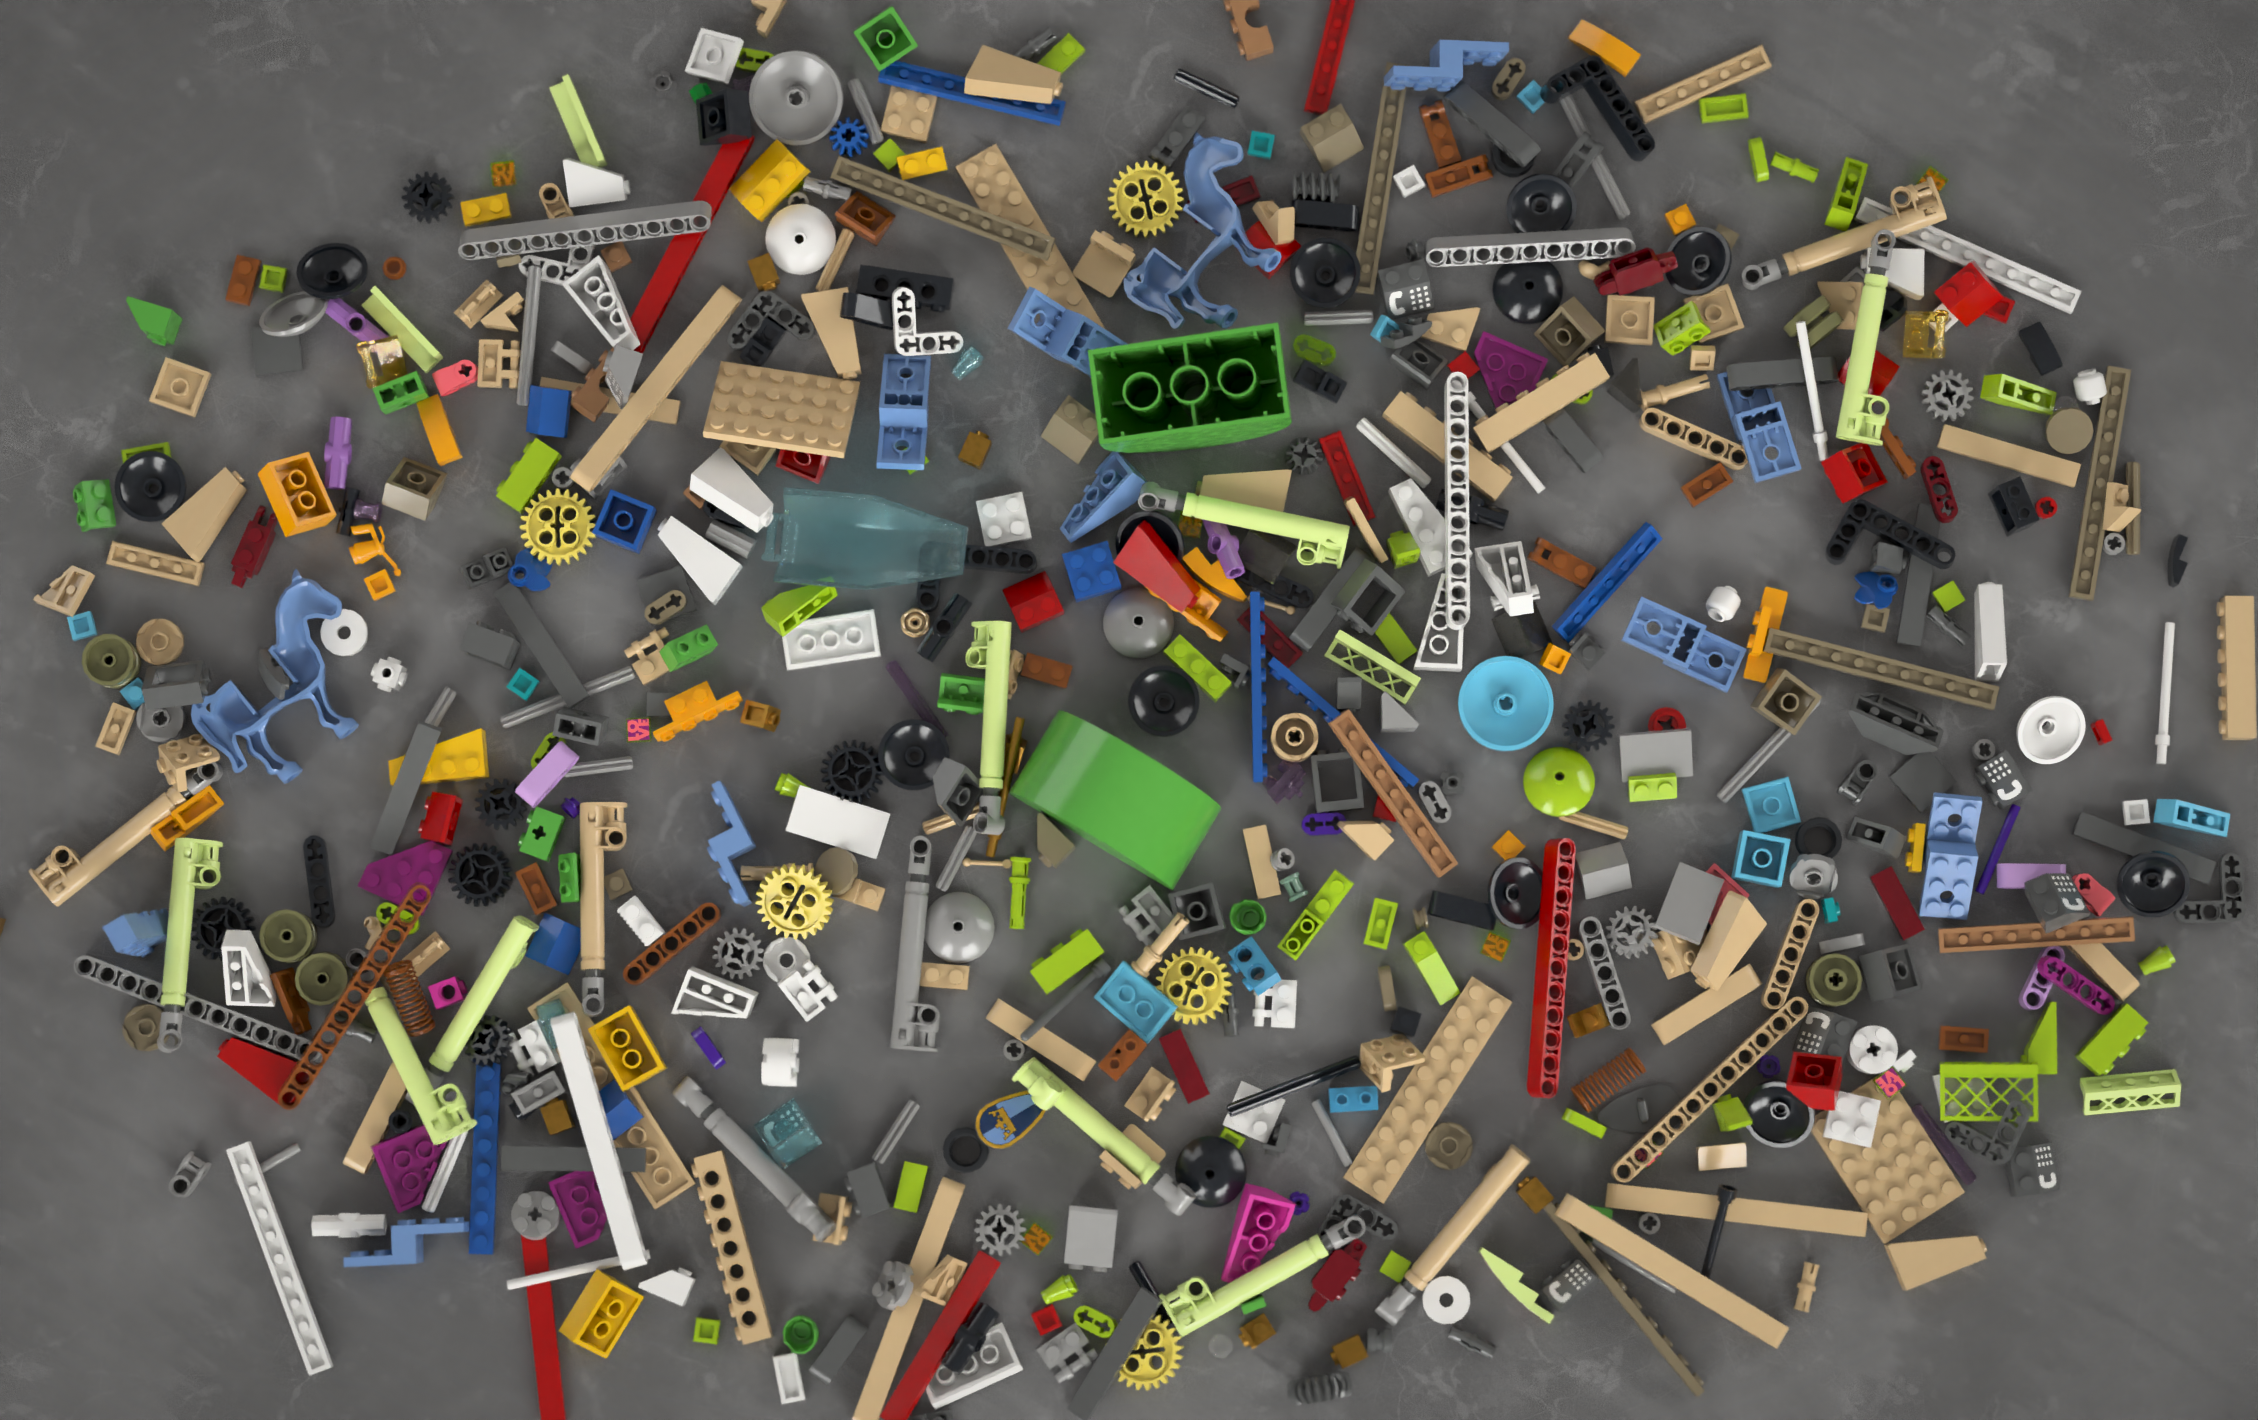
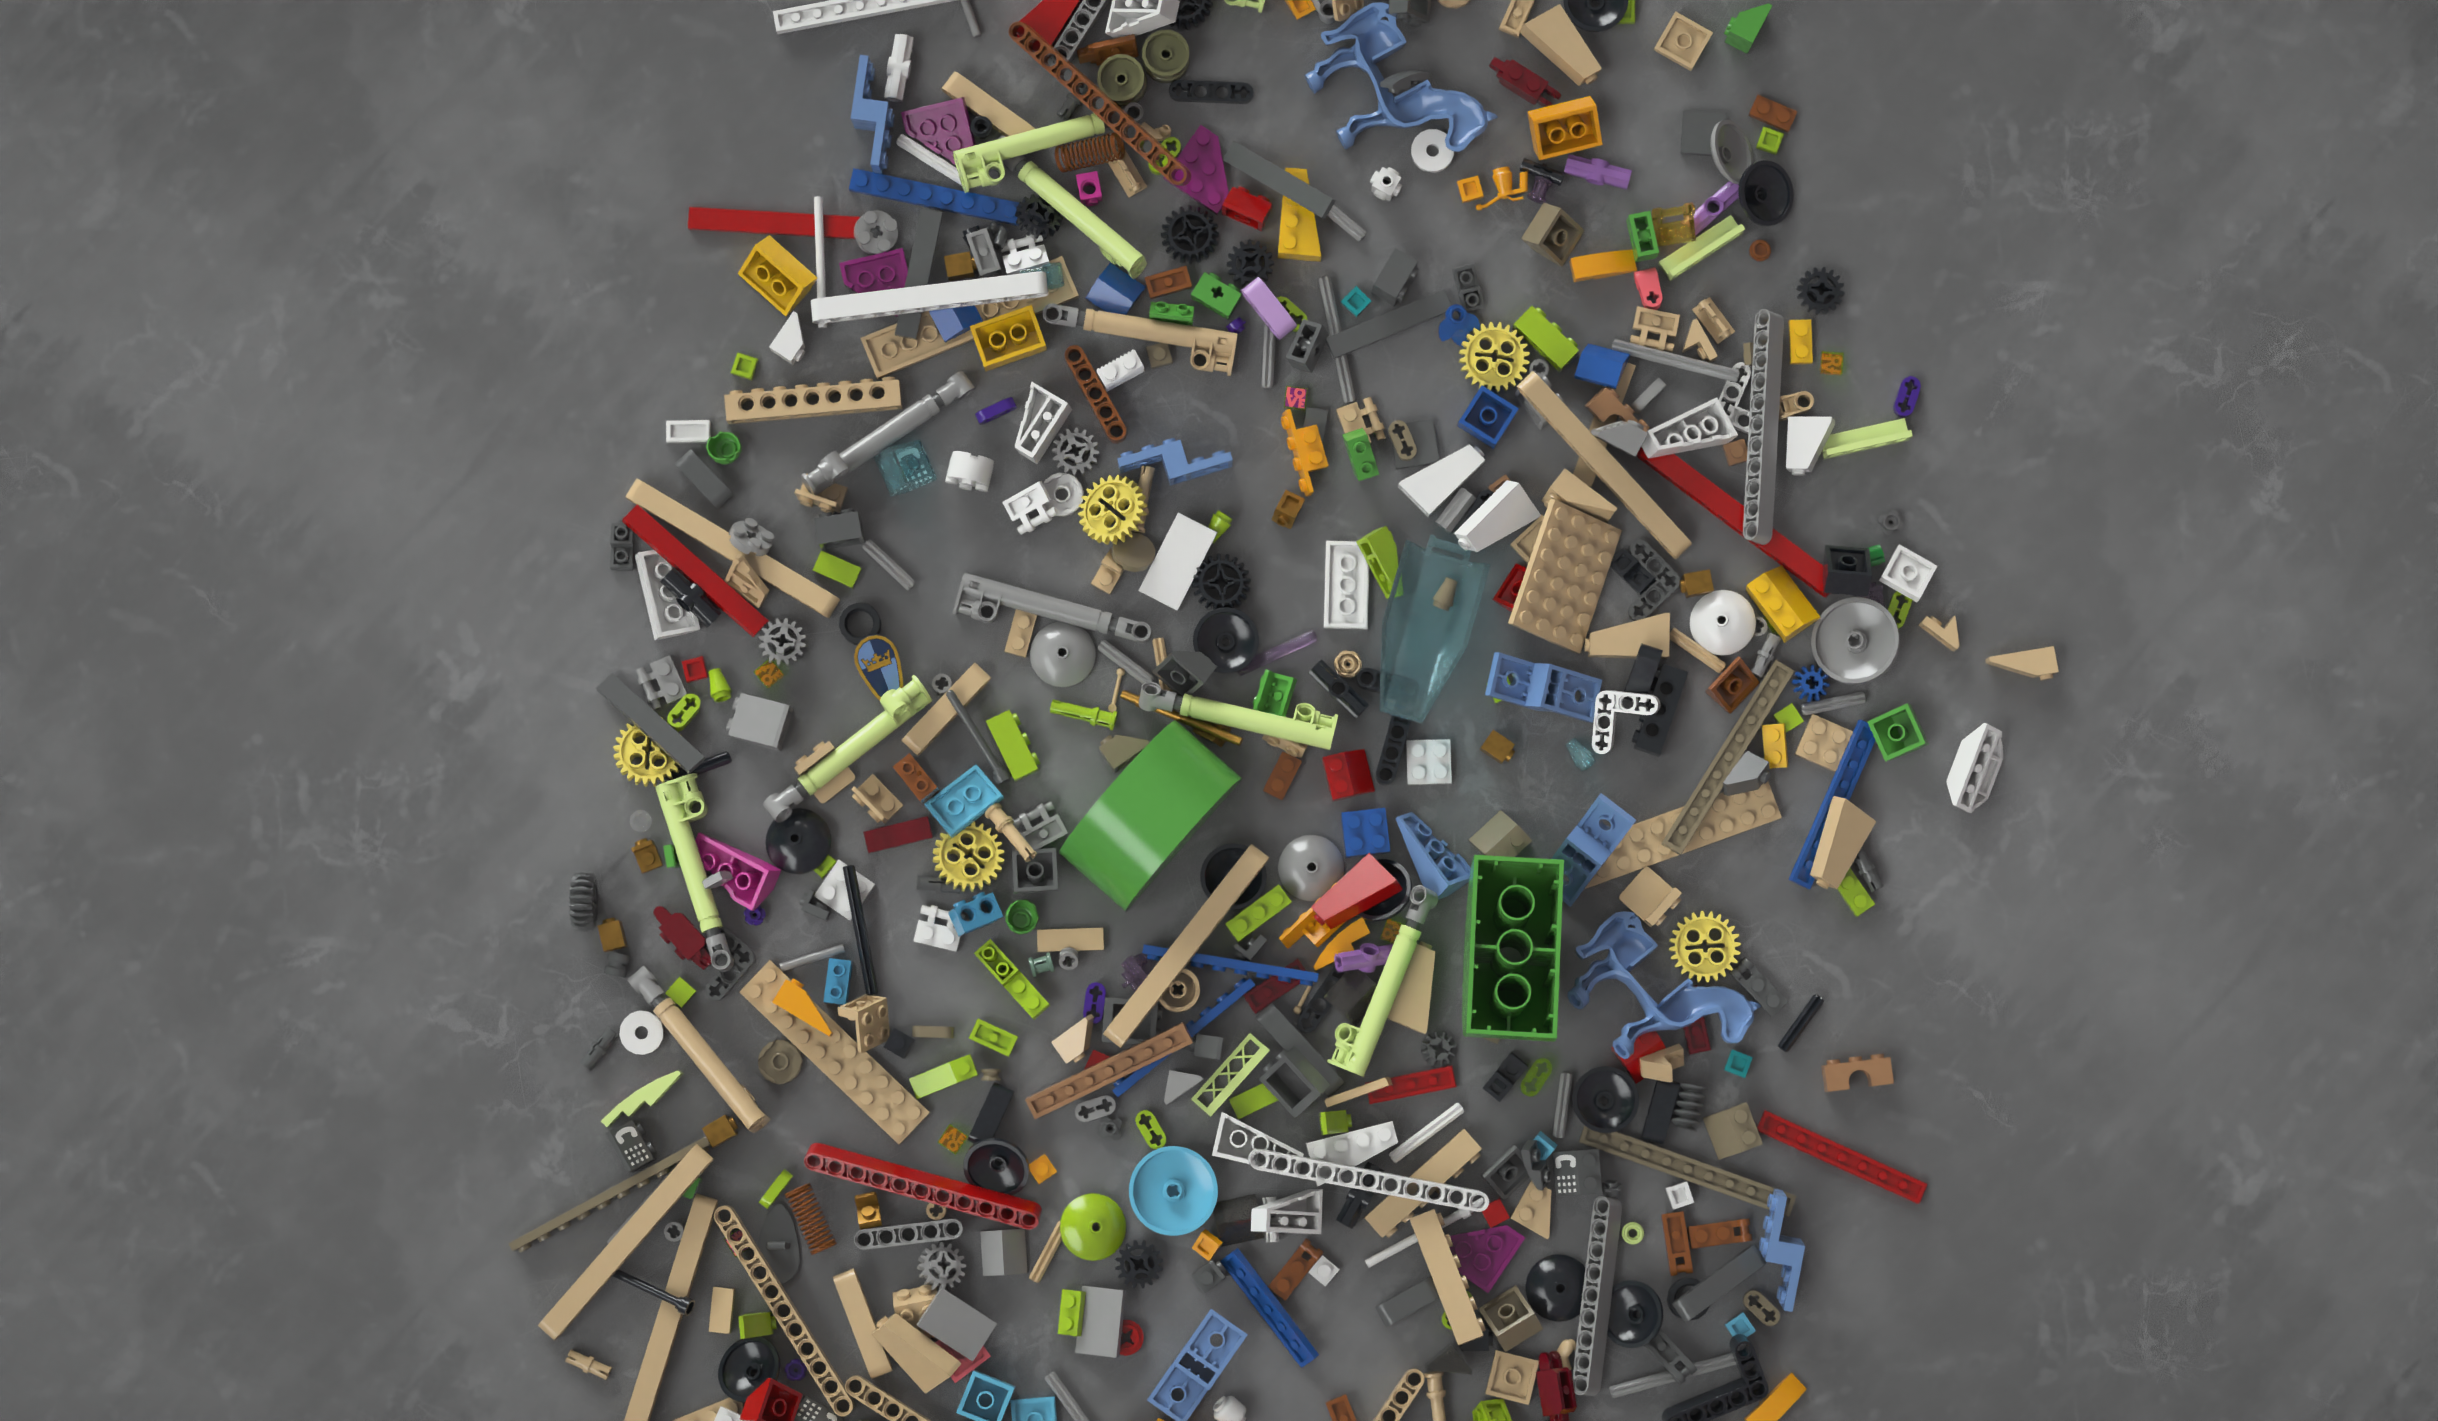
camera: 95 degrees right, 0 degrees up
(525, 95) = (1912, 397): none -> dark purple beam
(693, 410) = (1577, 494): none -> tan slope
(824, 531) = (1445, 595): none -> dark tan cone
(958, 184) = (1747, 775): none -> slope
(1247, 734) = (1186, 946): none -> tan beam
(1269, 1248) = (717, 879): none -> light grey tile
(1385, 1134) = (799, 1003): none -> light orange slope
(1441, 735) = (1155, 1126): none -> lime beam
(1456, 215) = (1639, 1236): none -> yellowish green plate
(1557, 533) = (1323, 1270): none -> white plate

